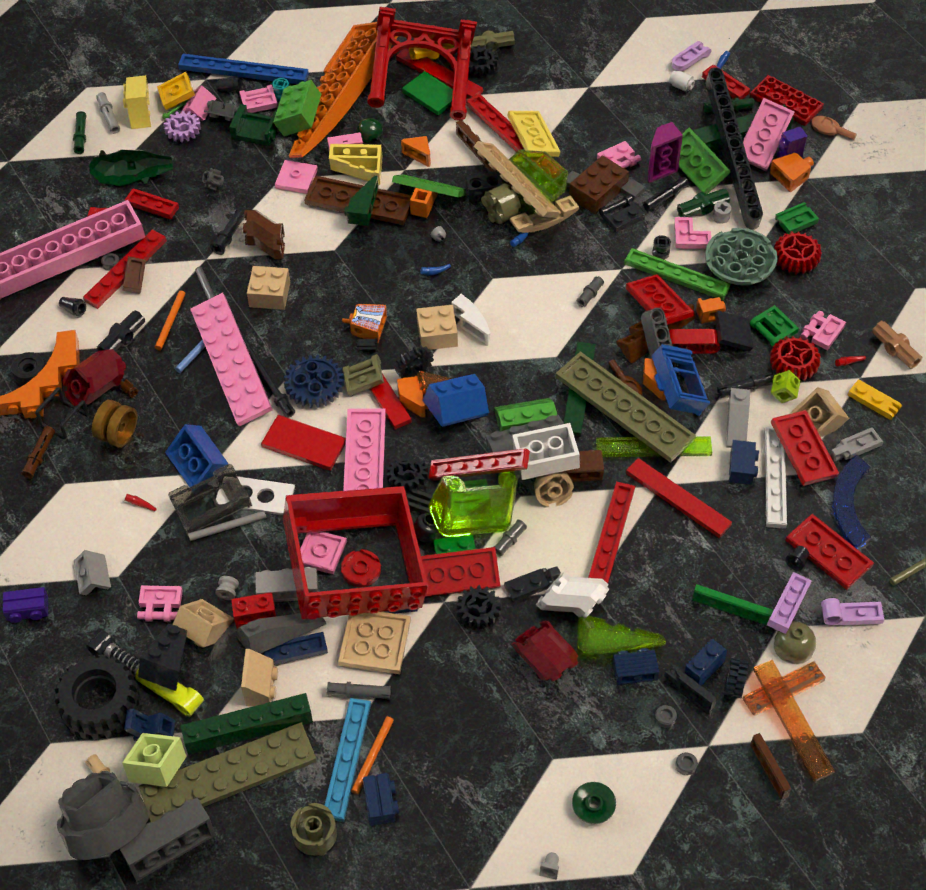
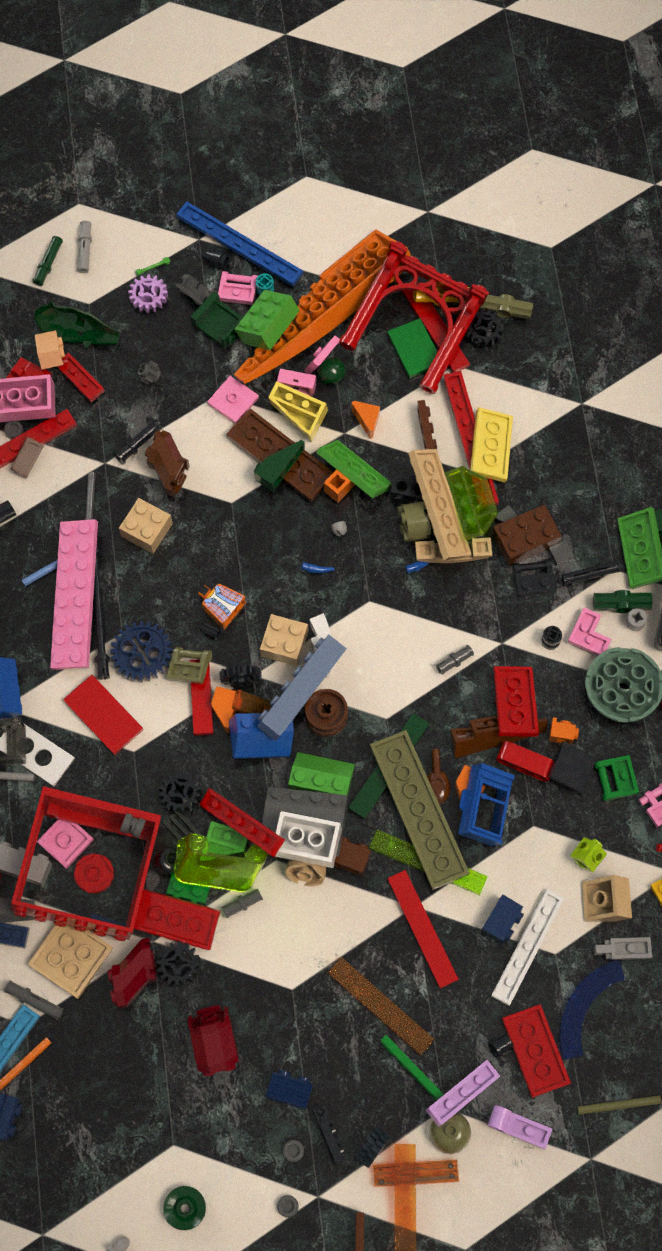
camera: 25 degrees right, 15 degrees up
(115, 189) = (49, 349): none -> light nougat brick
(137, 101) = (116, 244): light yellow wedge -> none
(169, 321) = (40, 522): orange bar -> none
(176, 91) = (159, 247): yellow plate -> none
(198, 103) = (175, 268): bright pink panel -> none
(358, 114) = (320, 354): none -> bright pink plate
(364, 449) = (149, 756): bright pink plate -> none
(383, 498) = (132, 825): none -> dark grey wheel
(442, 627) = (132, 974): none -> dark red brick
(474, 347) = (301, 687): none -> sand blue brick
(504, 366) = (318, 720): none -> reddish brown wheel
(531, 583) = (239, 959): black hinge -> none
(573, 595) = (266, 994): white brick -> none
(602, 638) = (281, 1049): clear neon green wedge -> none
(612, 531) = (338, 941): red plate -> none
(620, 153) = (566, 502): bright pink plate -> none
(653, 327) = (486, 736): dark grey beam -> none
(664, 152) = (607, 528): magenta slope -> none
(677, 274) = (553, 673): bright green tile -> none
(677, 570) = (381, 1006): none -> clear orange tile
(706, 661) = (354, 1117): dark blue brick -> none
(738, 415) = (523, 869): light grey slope -> none
(753, 382) = (552, 833): black pin -> none
(797, 353) = (625, 825): red gear -> none
(804, 447) = (570, 931): red plate -> none

